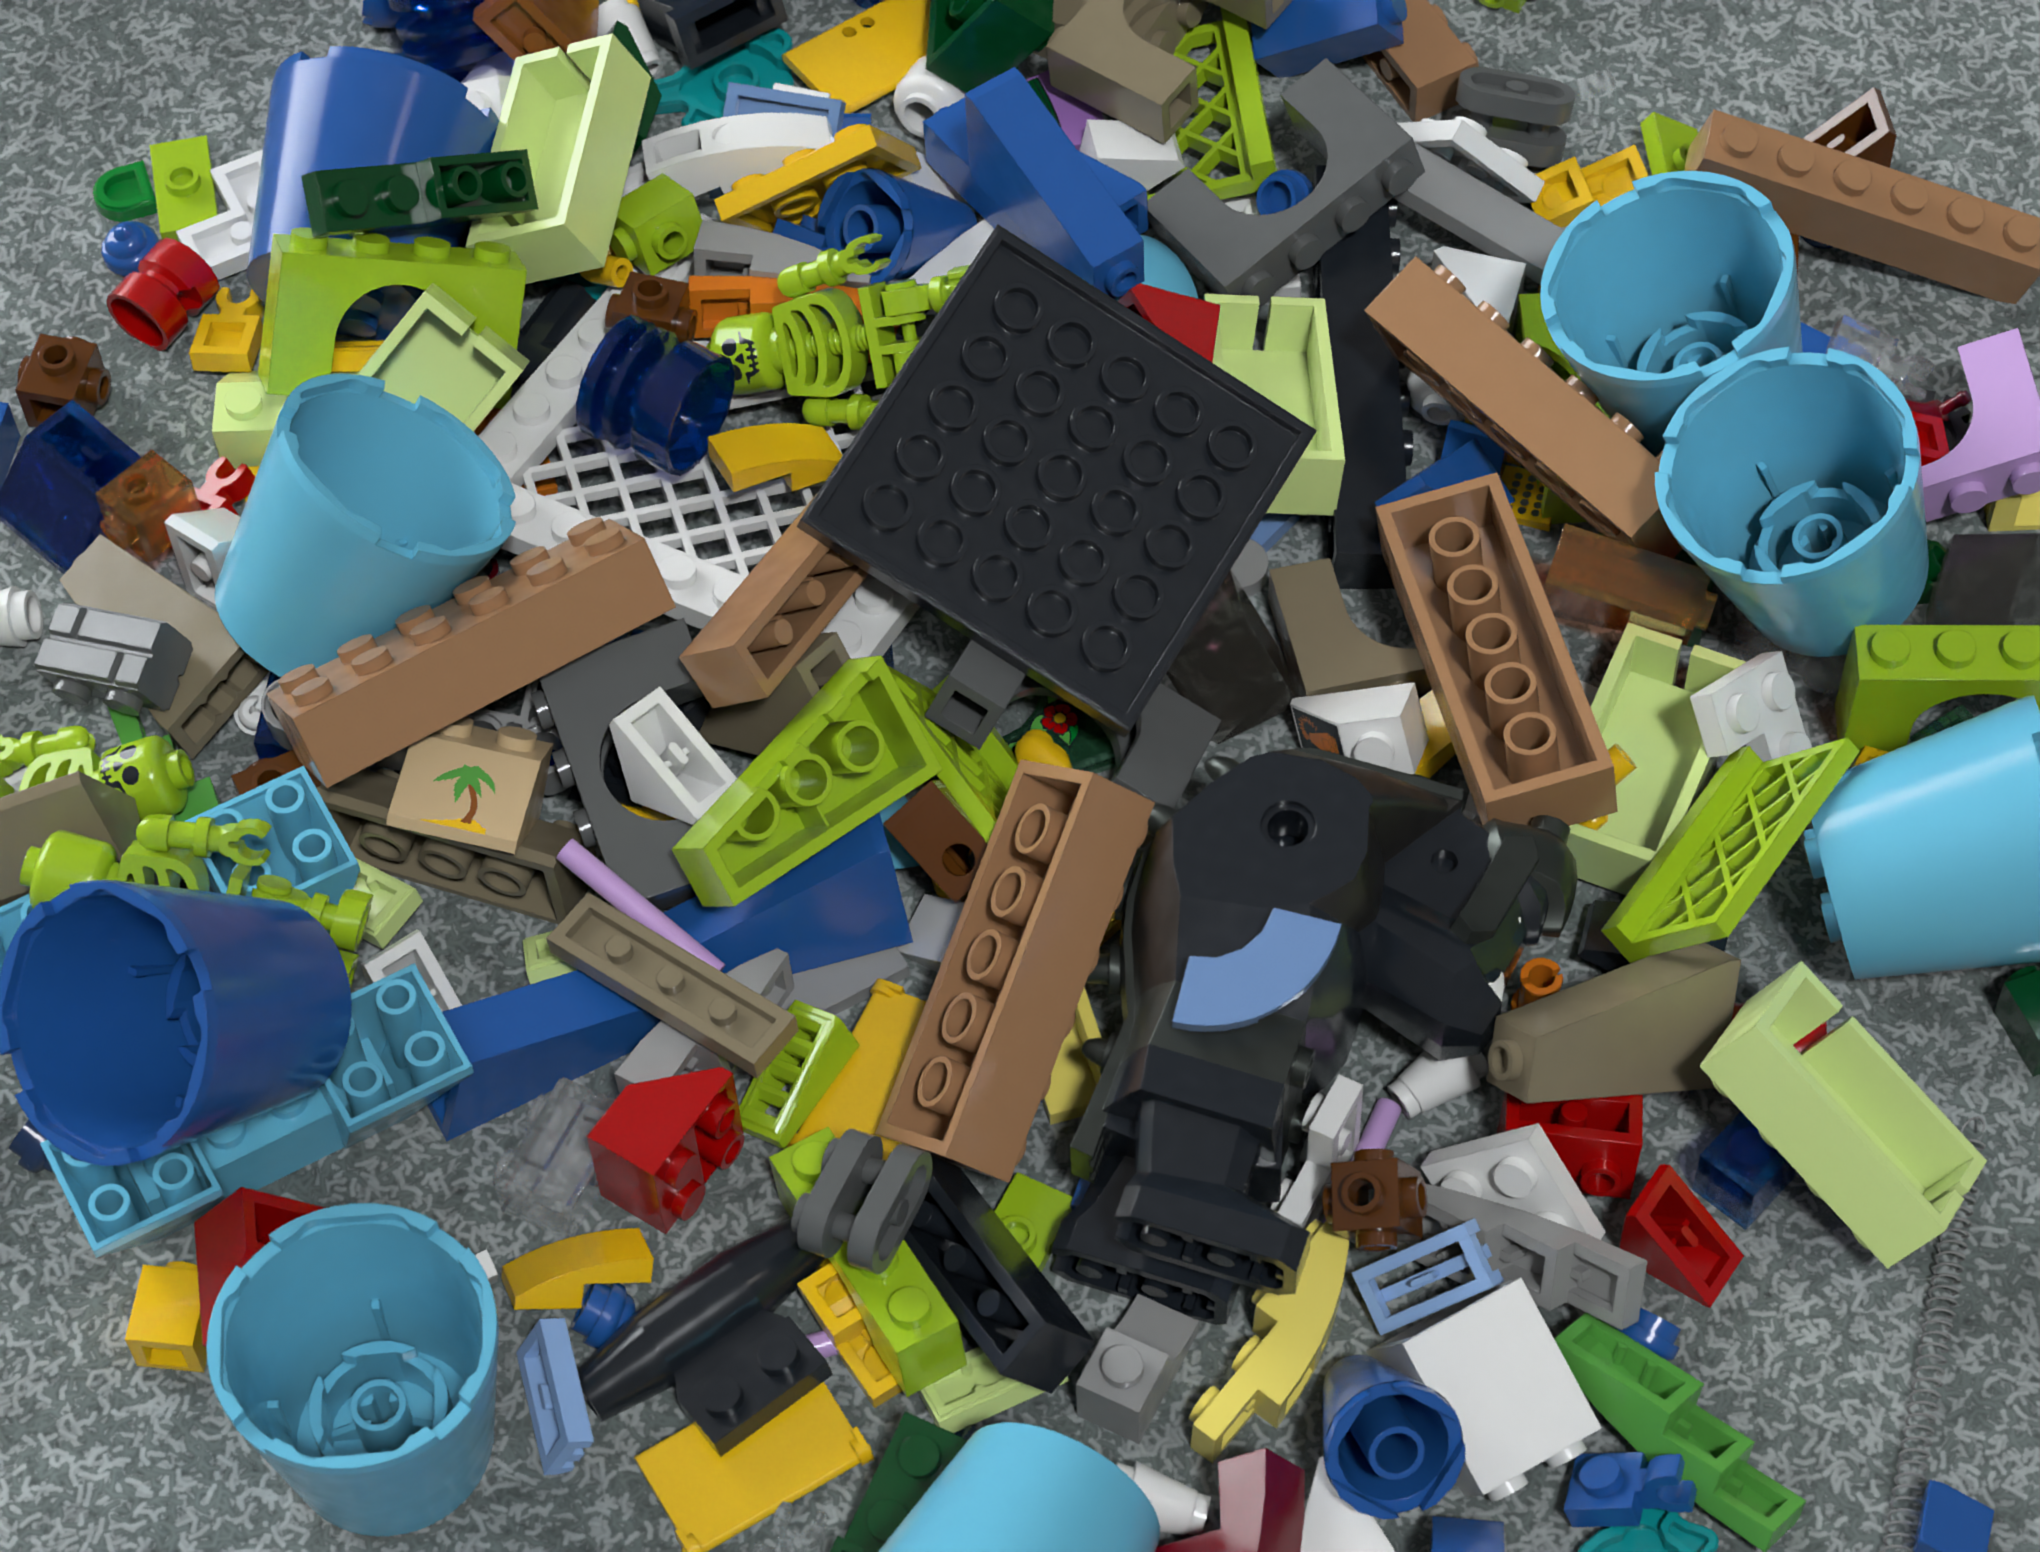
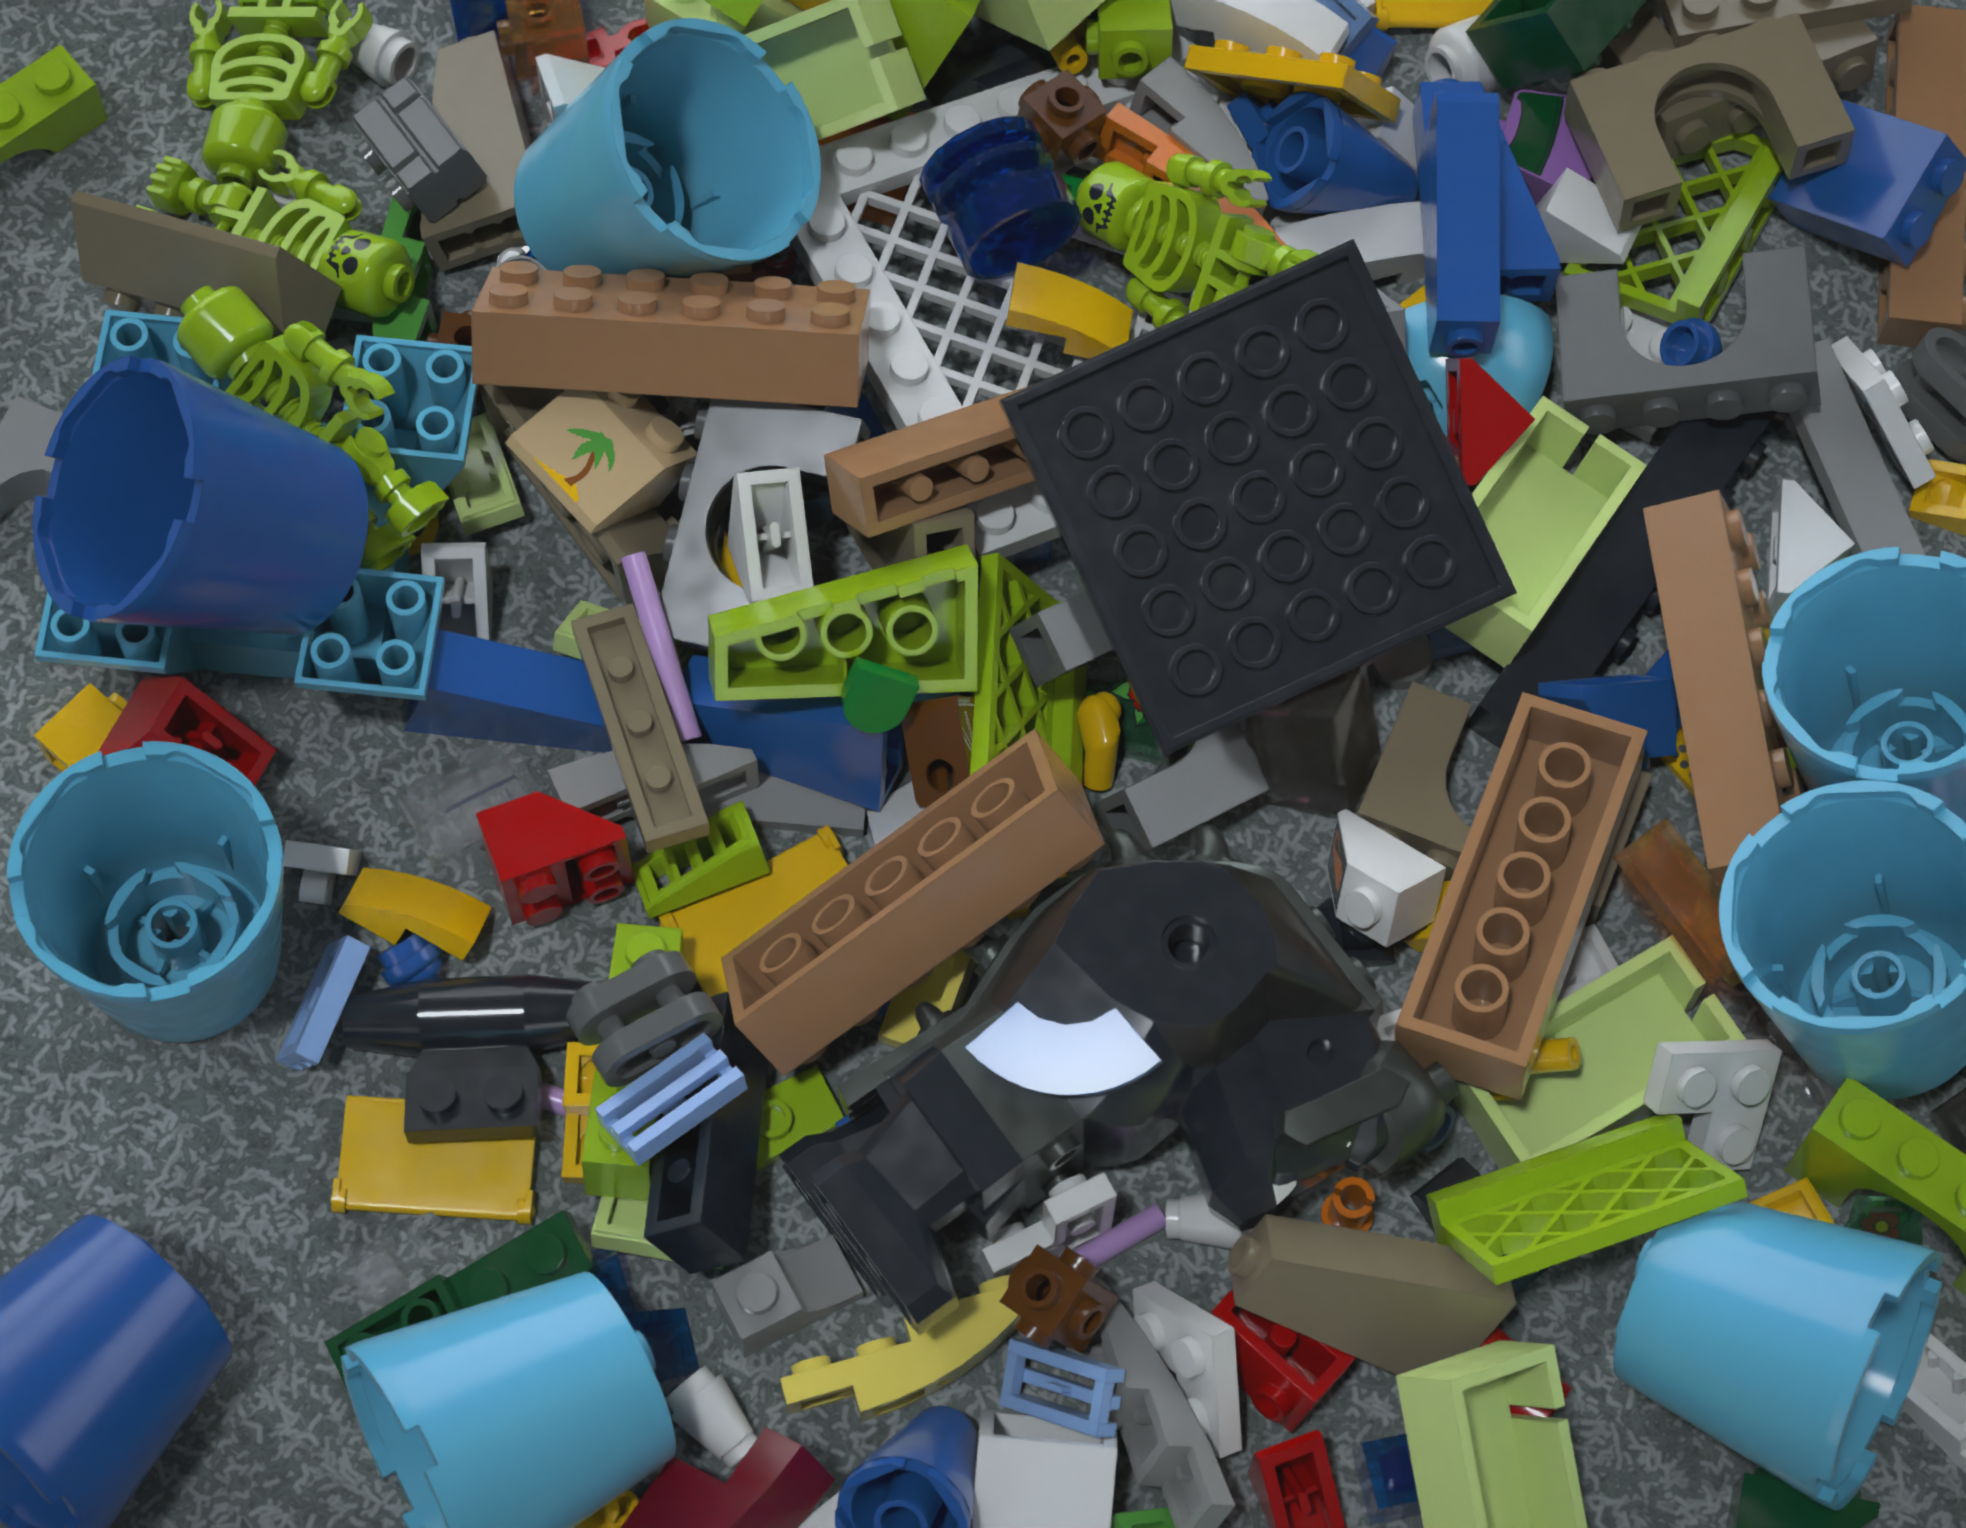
camera: 30 degrees right, 10 degrees up
(867, 819) = (877, 696): none -> green tile
(915, 1299) = (664, 1090): none -> light blue tile

